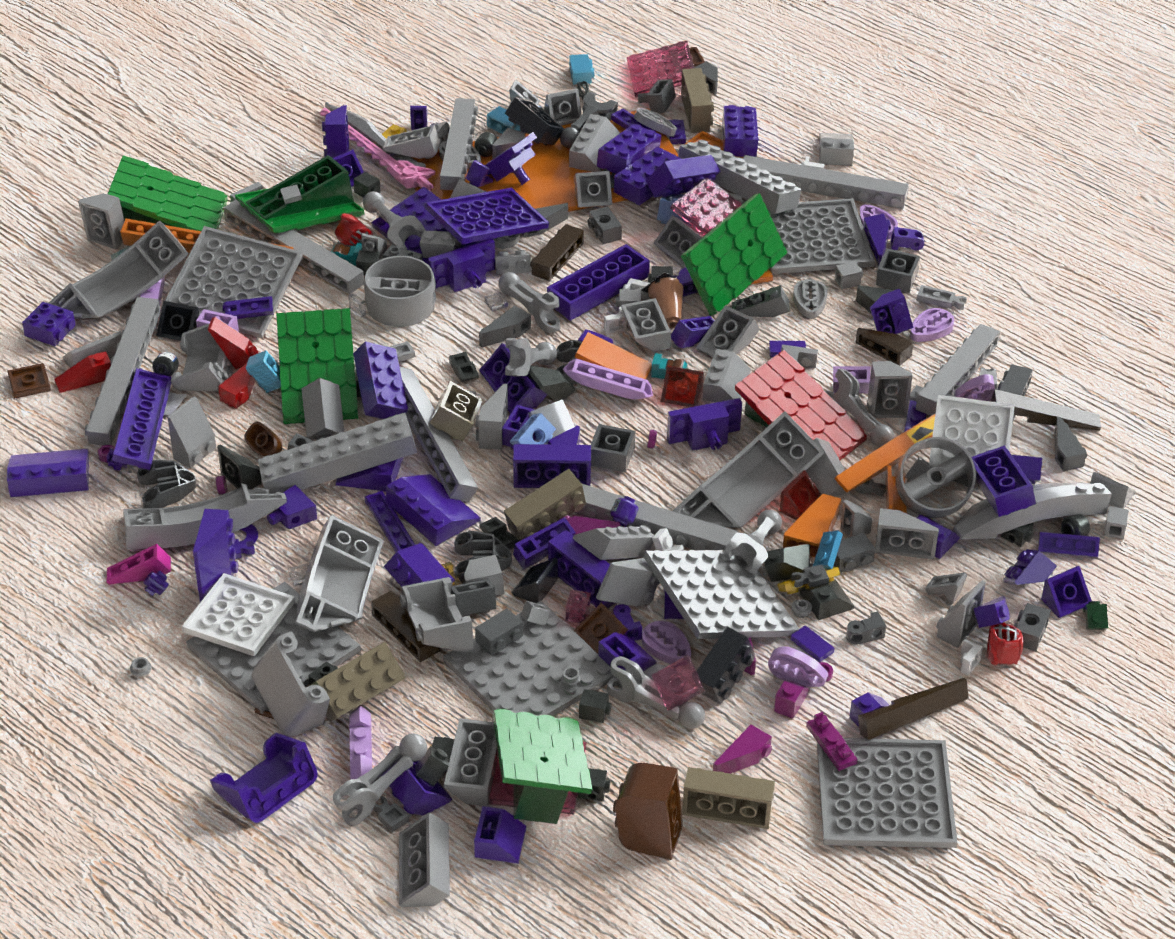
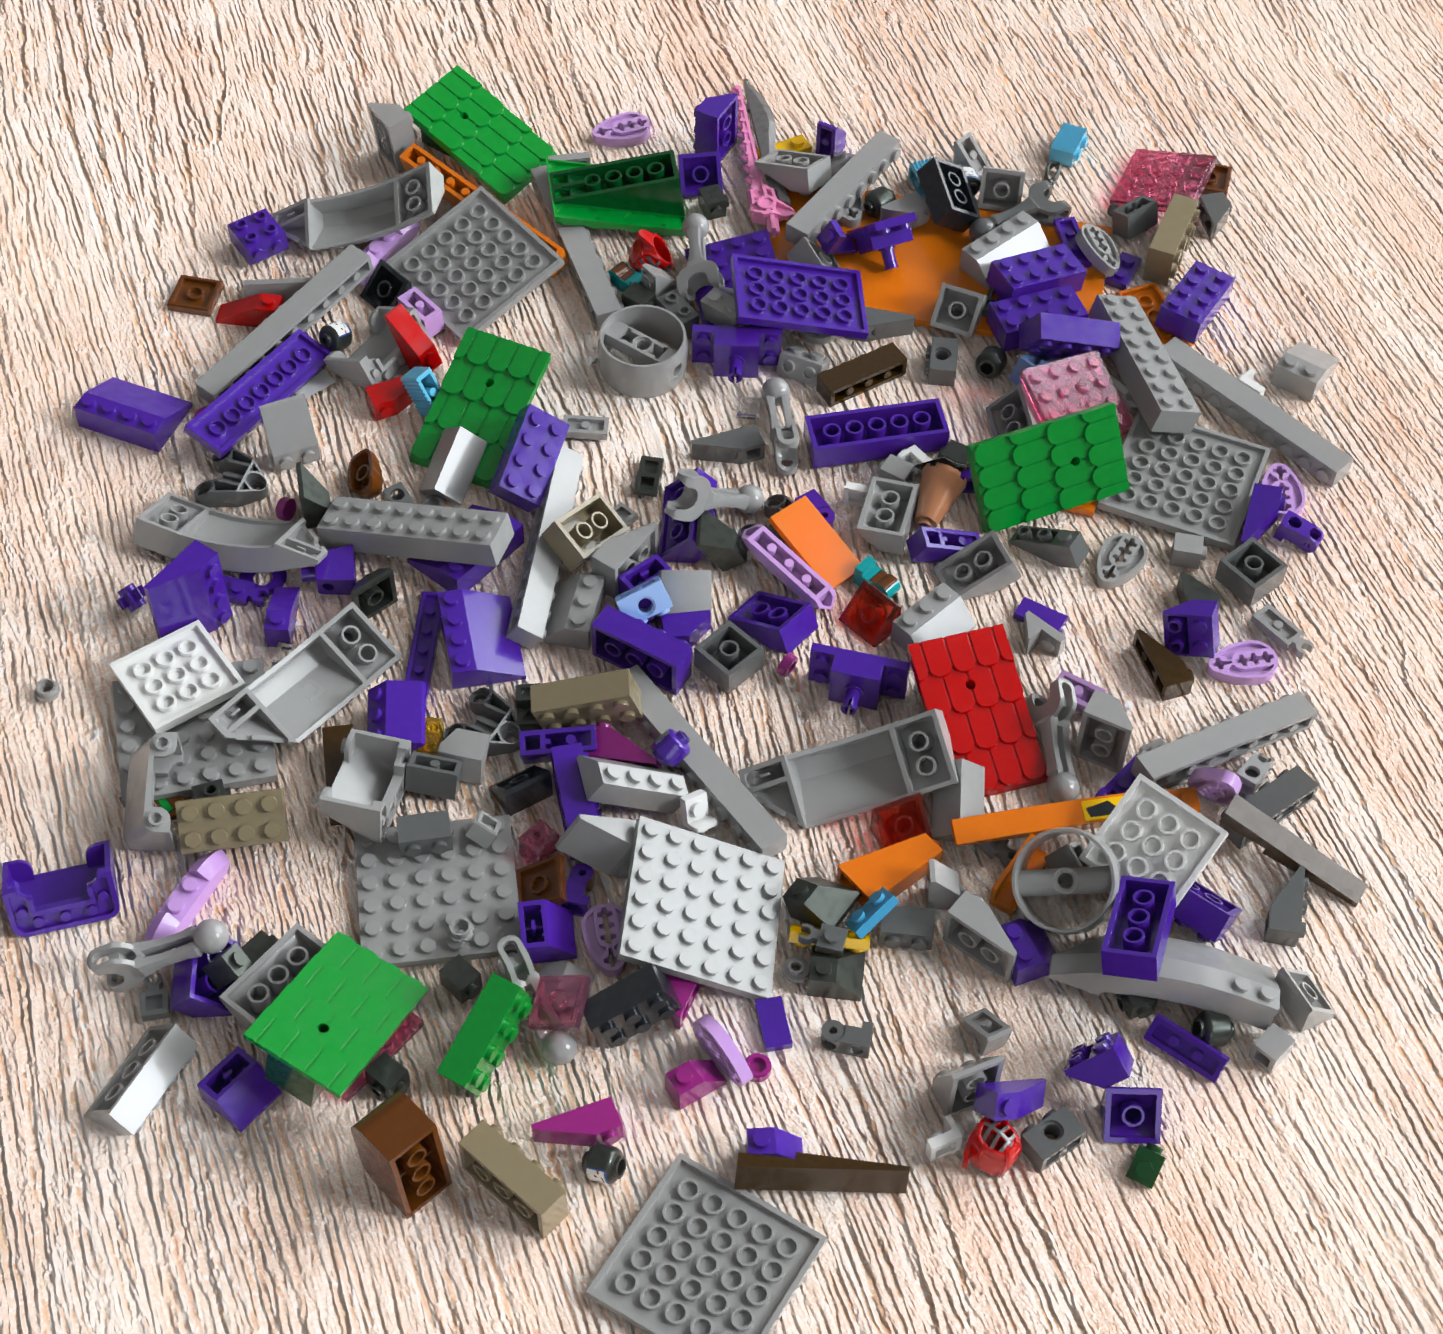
camera: 30 degrees right, 10 degrees up
(139, 566) = (129, 568): dark pink slope -> none
(249, 307) = (465, 305): dark purple plate -> none
(262, 164) = (622, 130): none -> lavender piece
(278, 551) = (281, 616): none -> dark purple slope
(291, 194) = (598, 183): light grey tile -> none
(334, 503) = (375, 592): none -> pearl dark grey slope
(485, 463) = (574, 610): none -> light grey slope
(626, 413) = (775, 621): none -> dark purple slope
(637, 214) = (991, 362): none -> pearl dark grey head
(646, 720) = (485, 1035): none -> green brick
(751, 546) = (782, 863): light grey piece -> none
(774, 766) = (604, 1163): none -> pearl dark grey head
(831, 742) = (688, 1169): magenta plate -> none

